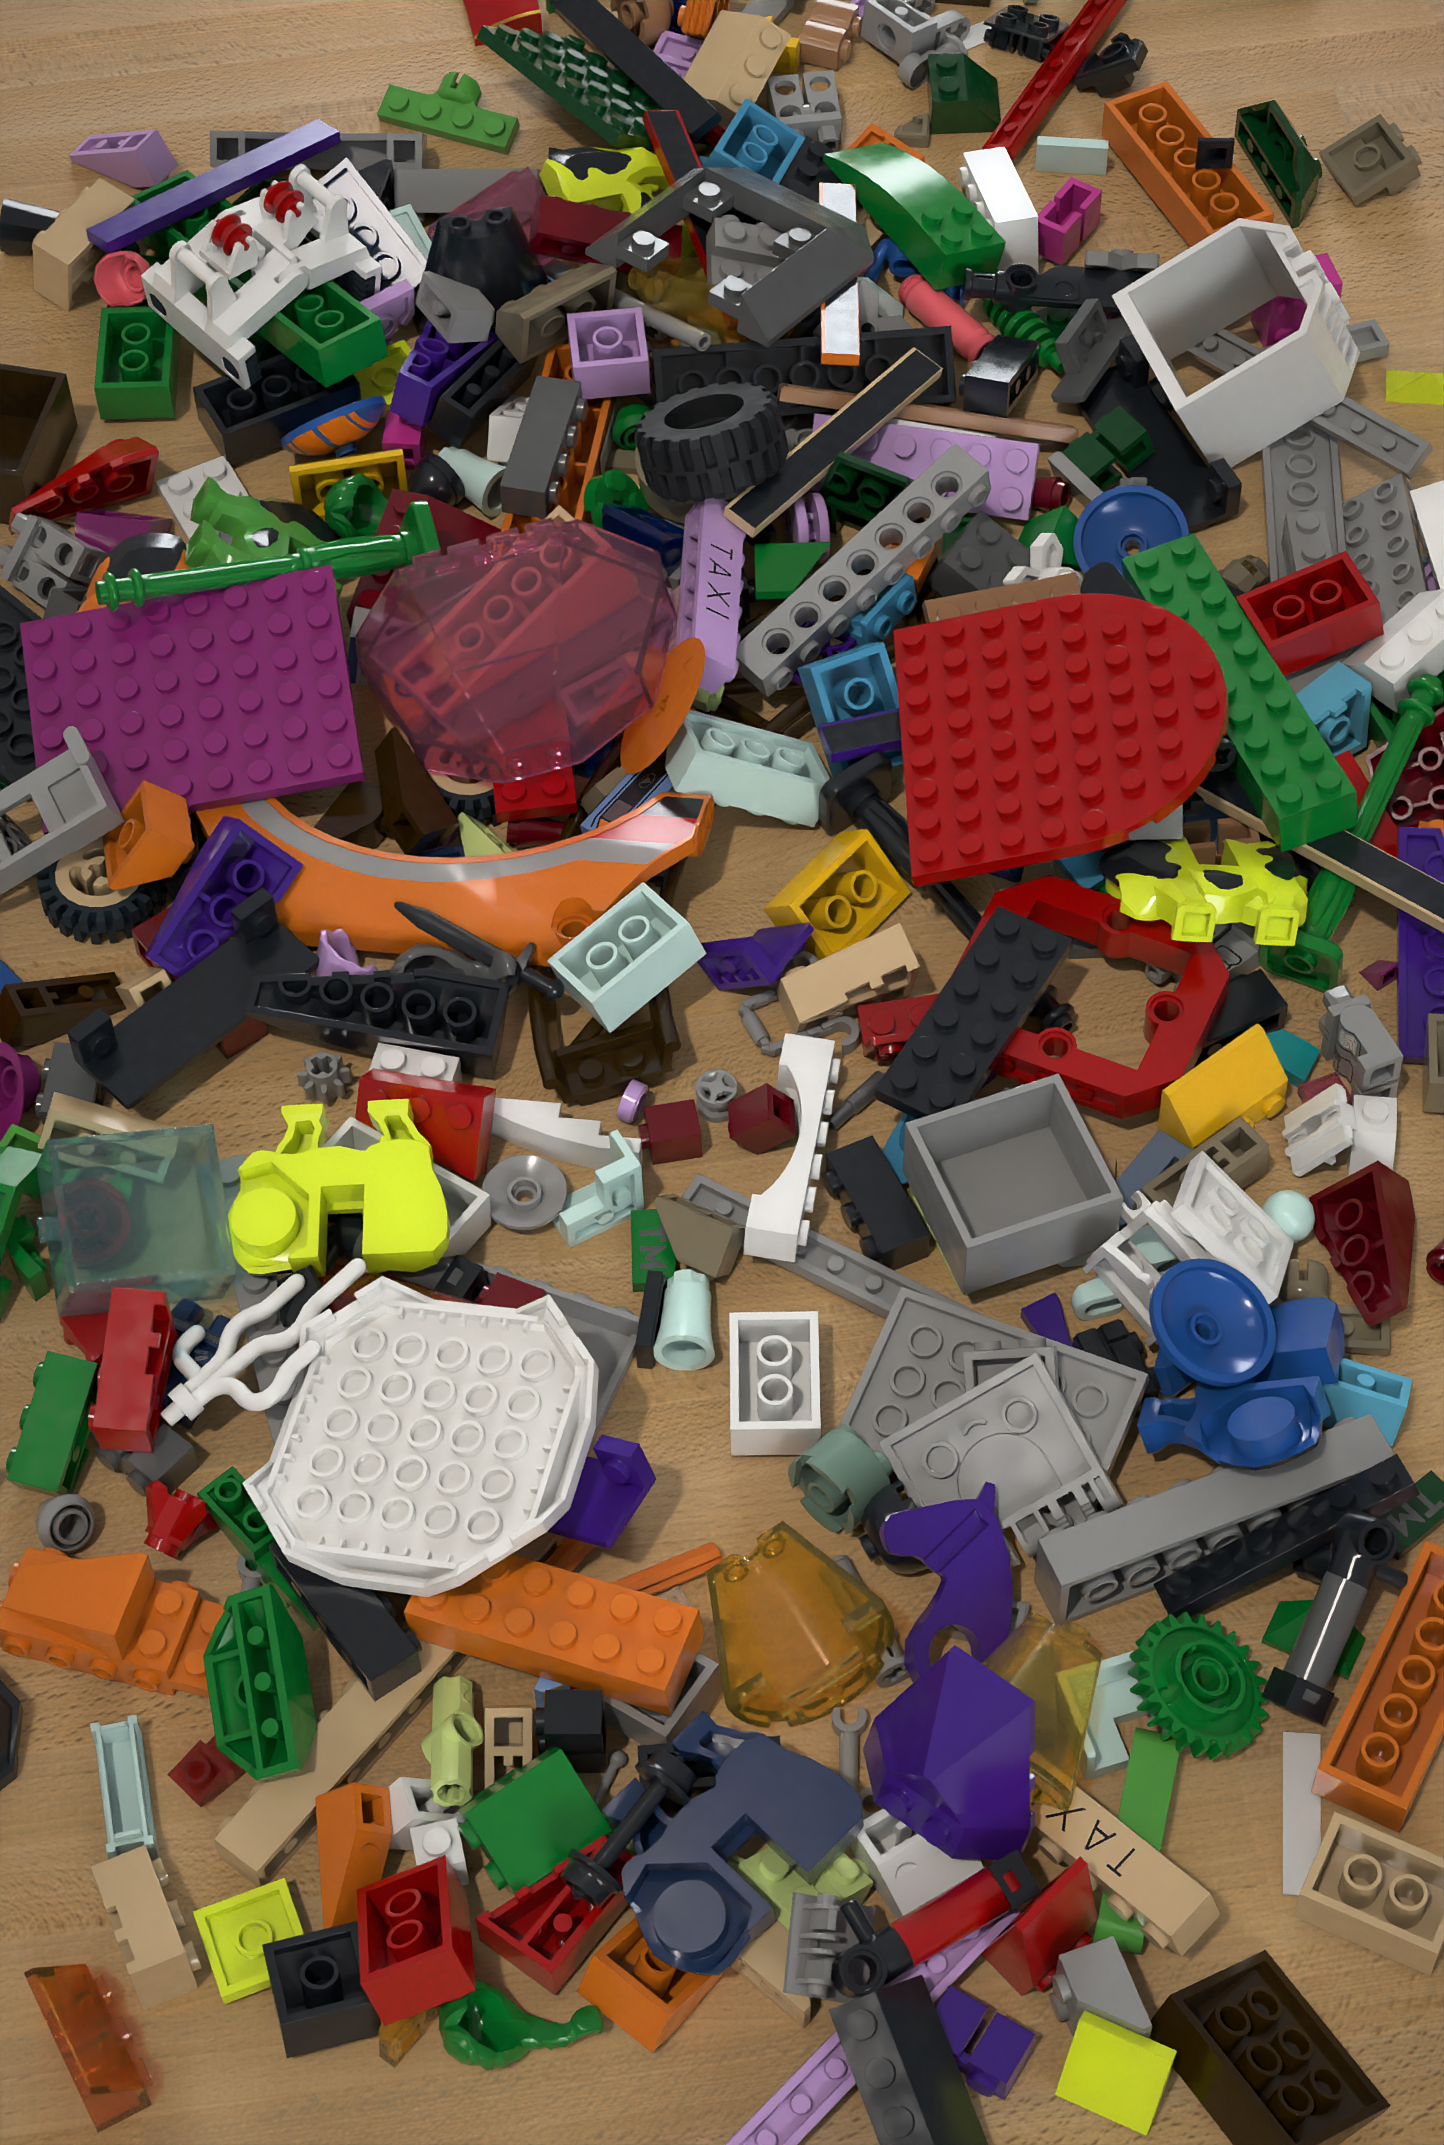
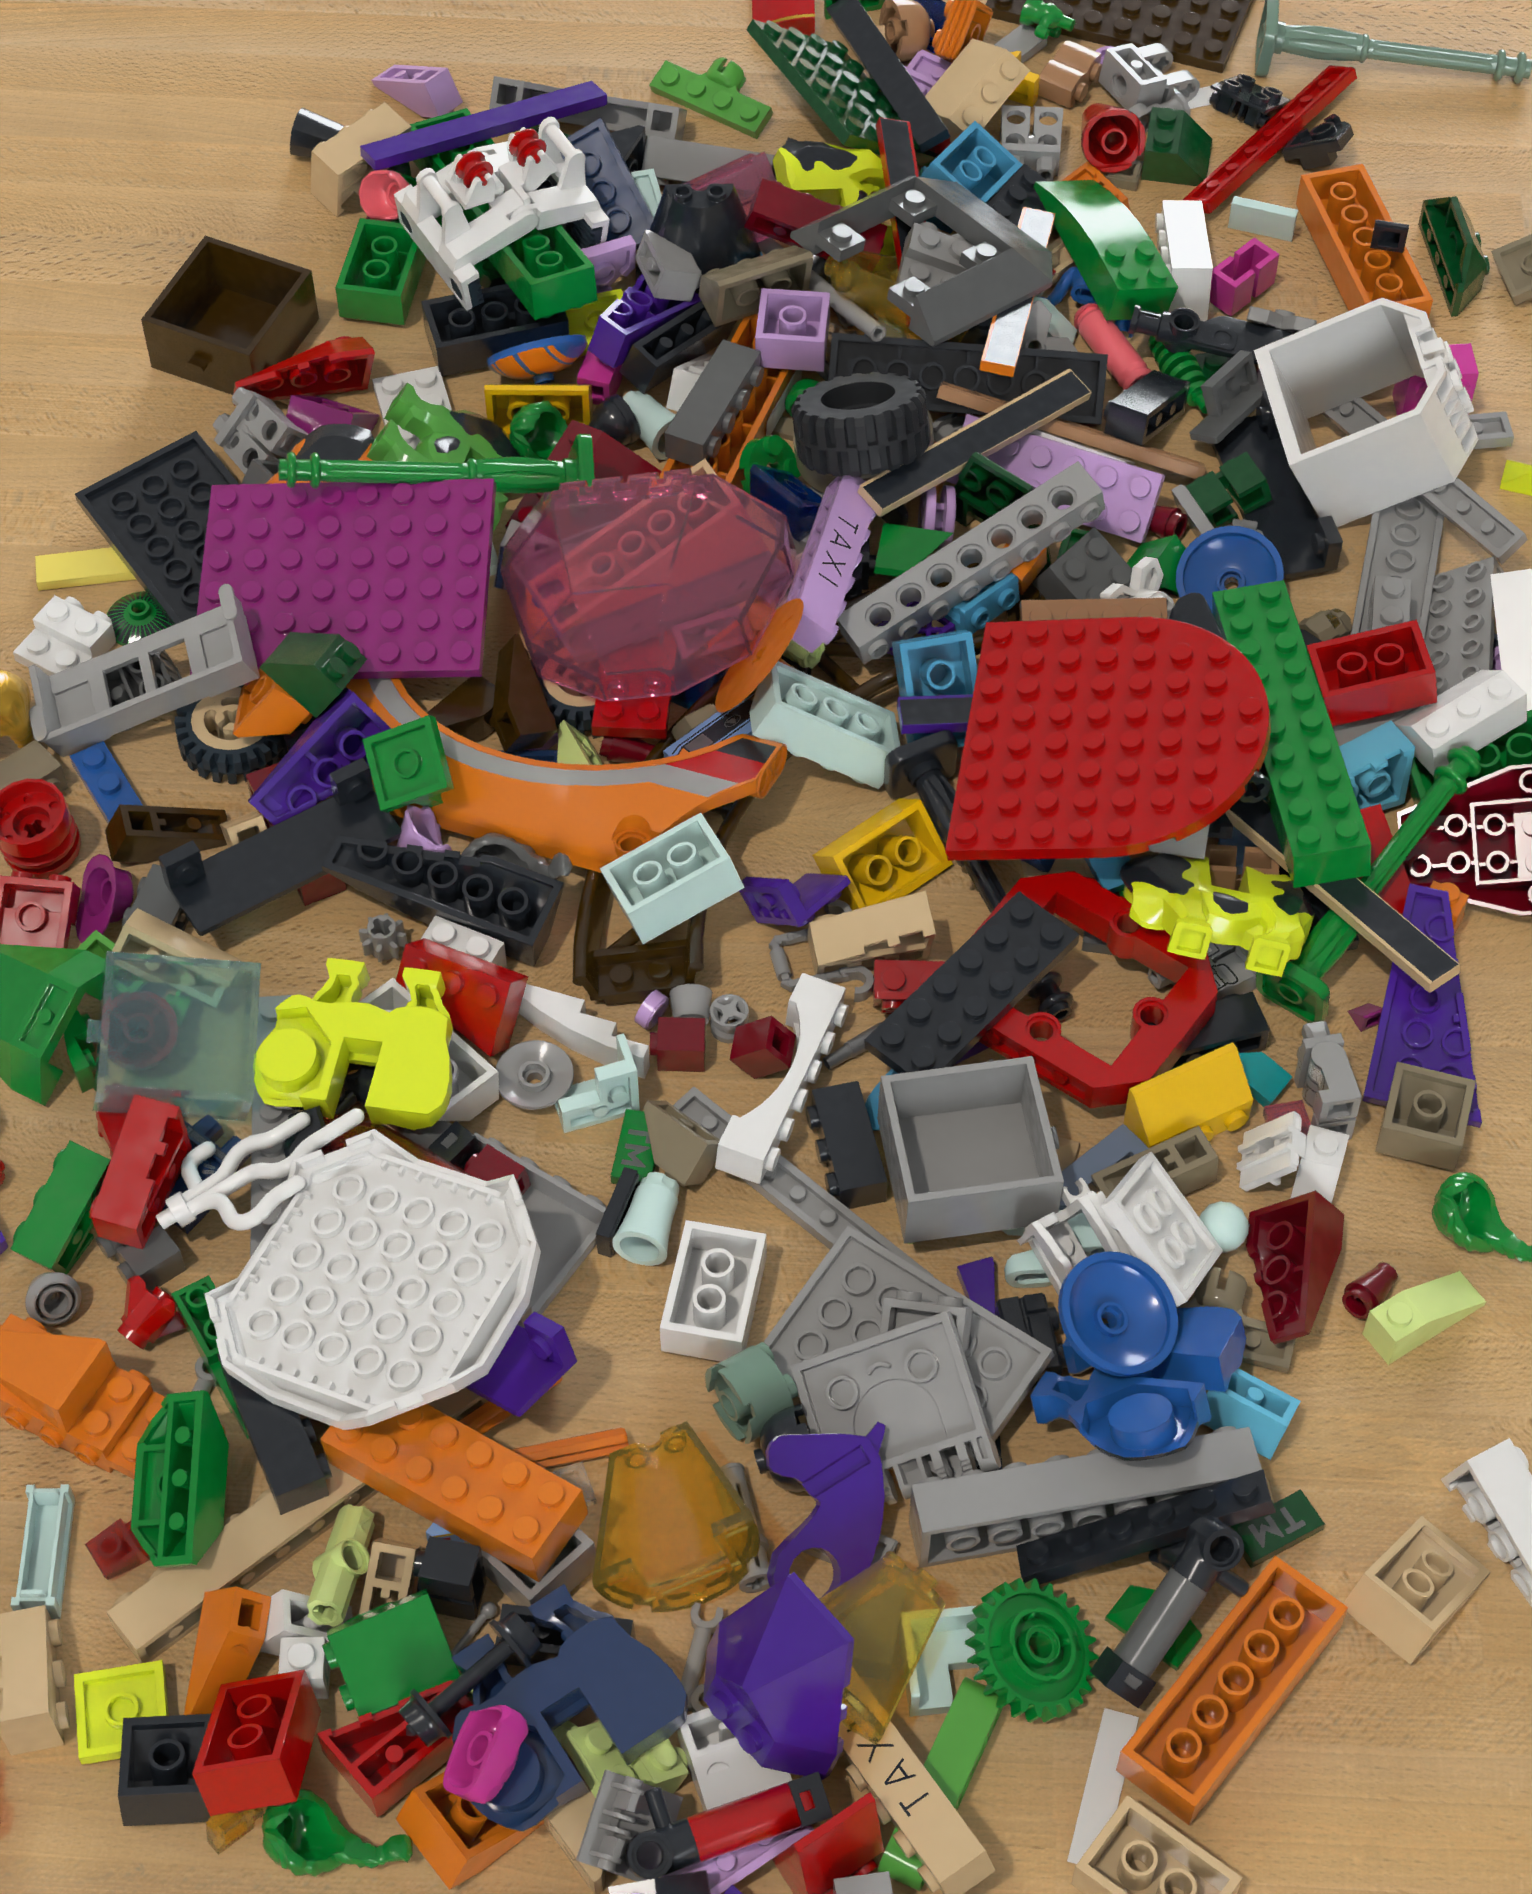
camera: 10 degrees right, 0 degrees up
(186, 800) = (313, 667): none -> dark green slope
(315, 886) = (408, 765): none -> green bracket
(482, 950) = (547, 849): black sword -> none
(665, 1899) = (485, 1753): none -> dark pink piece
(672, 1084) = (691, 1001): none -> light grey hat
(892, 93) = (1111, 137): none -> red cone

